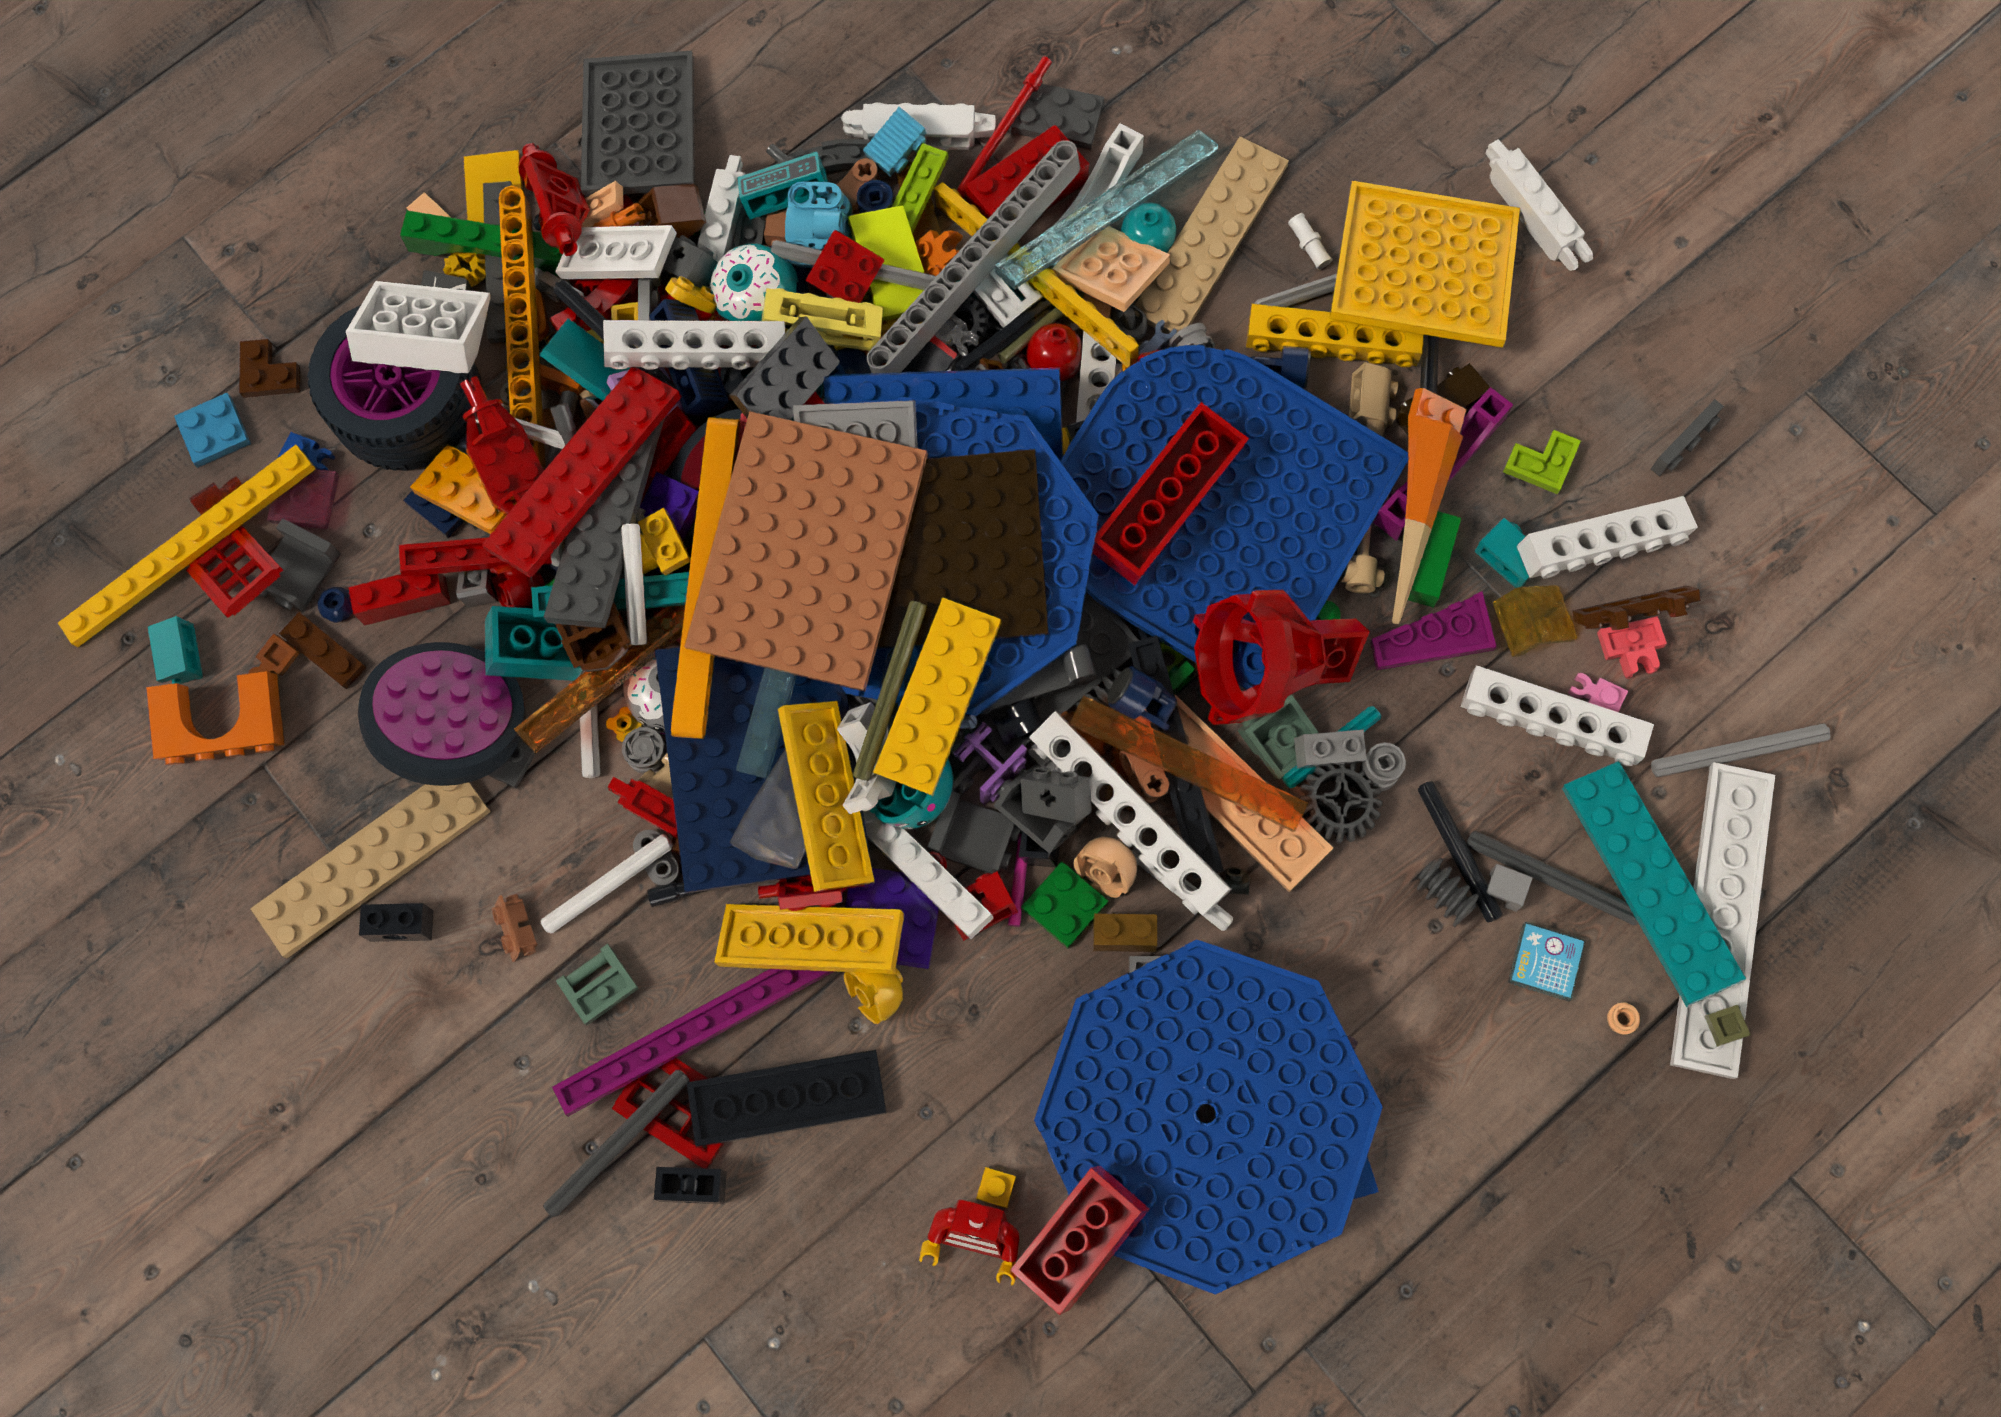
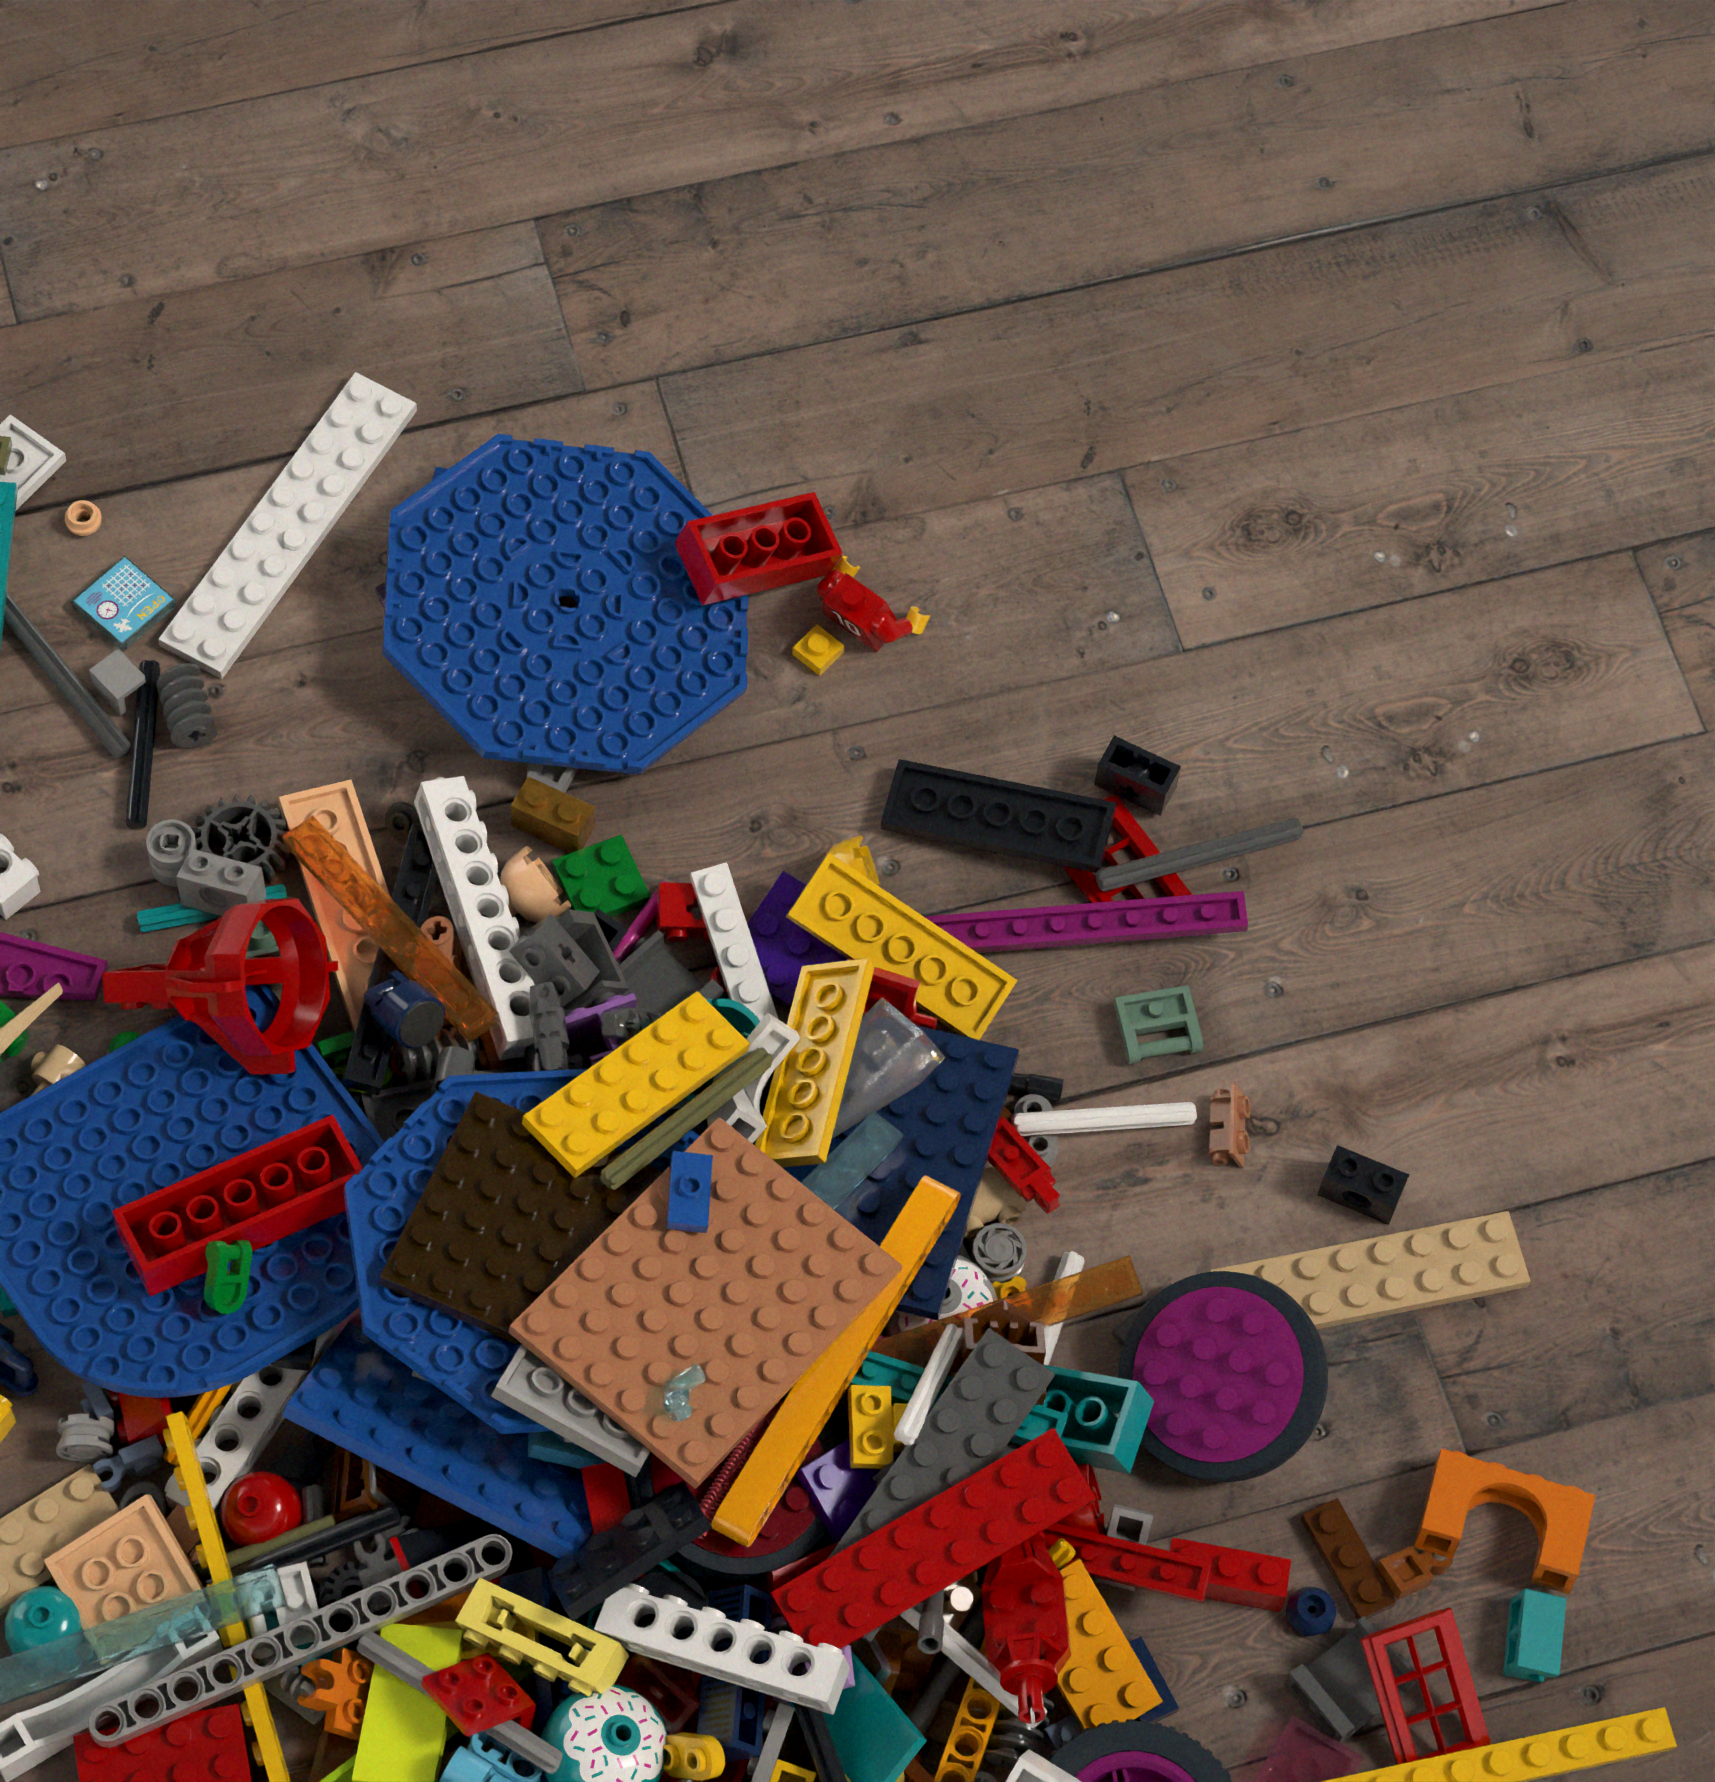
camera: 165 degrees left, 10 degrees down
(789, 456) = (677, 1392): none -> clear light blue arm
(852, 609) = (689, 1191): none -> blue plate
(973, 766) = (626, 1022): none -> dark grey hinge
(1028, 729) = (549, 1027): none -> dark grey hinge
(1148, 437) = (226, 1289): none -> green plate
(1466, 1100) = (287, 525): none -> white plate

